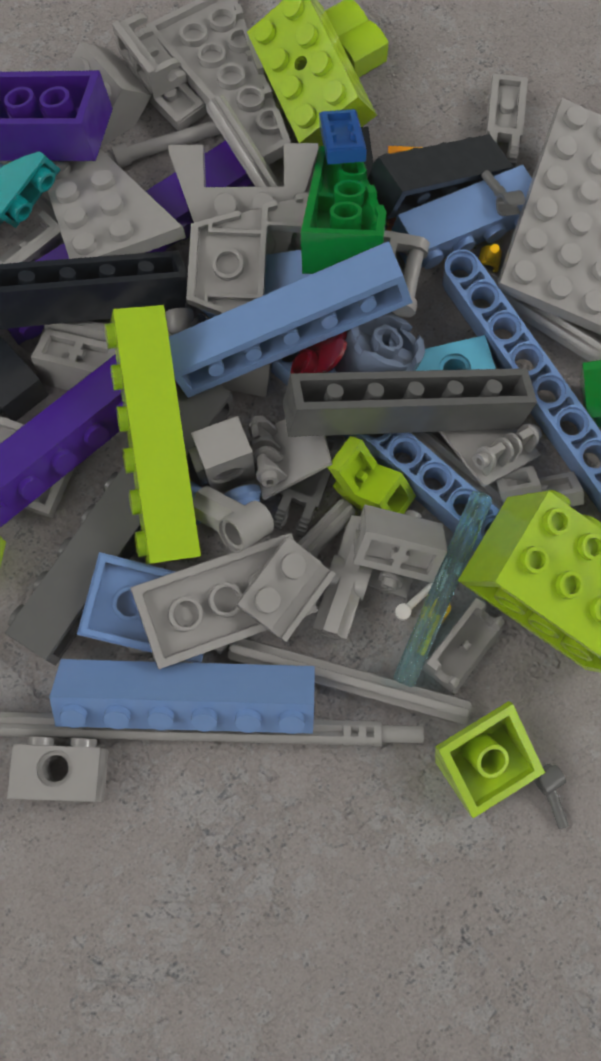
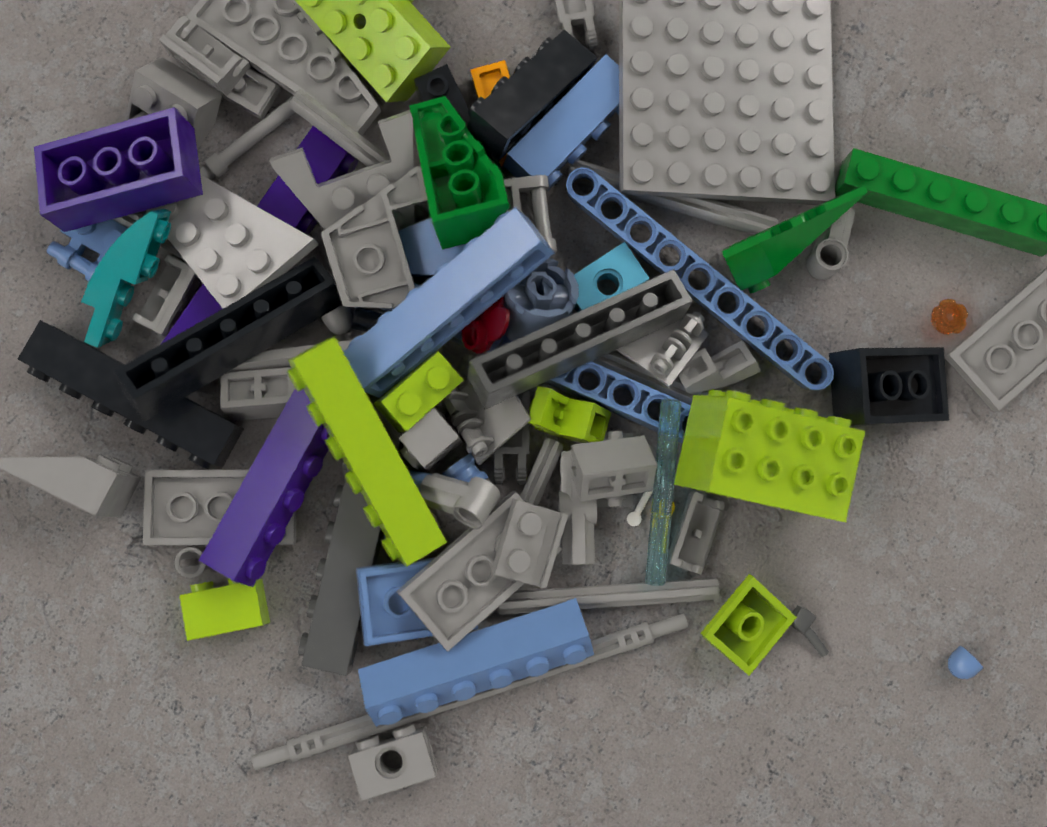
camera: 20 degrees left, 10 degrees up
(236, 394) = (418, 392): none -> lime brick
(342, 136) = (430, 95): blue plate -> none
(491, 256) = (603, 153): yellow hand -> none
(505, 201) = (604, 104): dark grey hand -> none

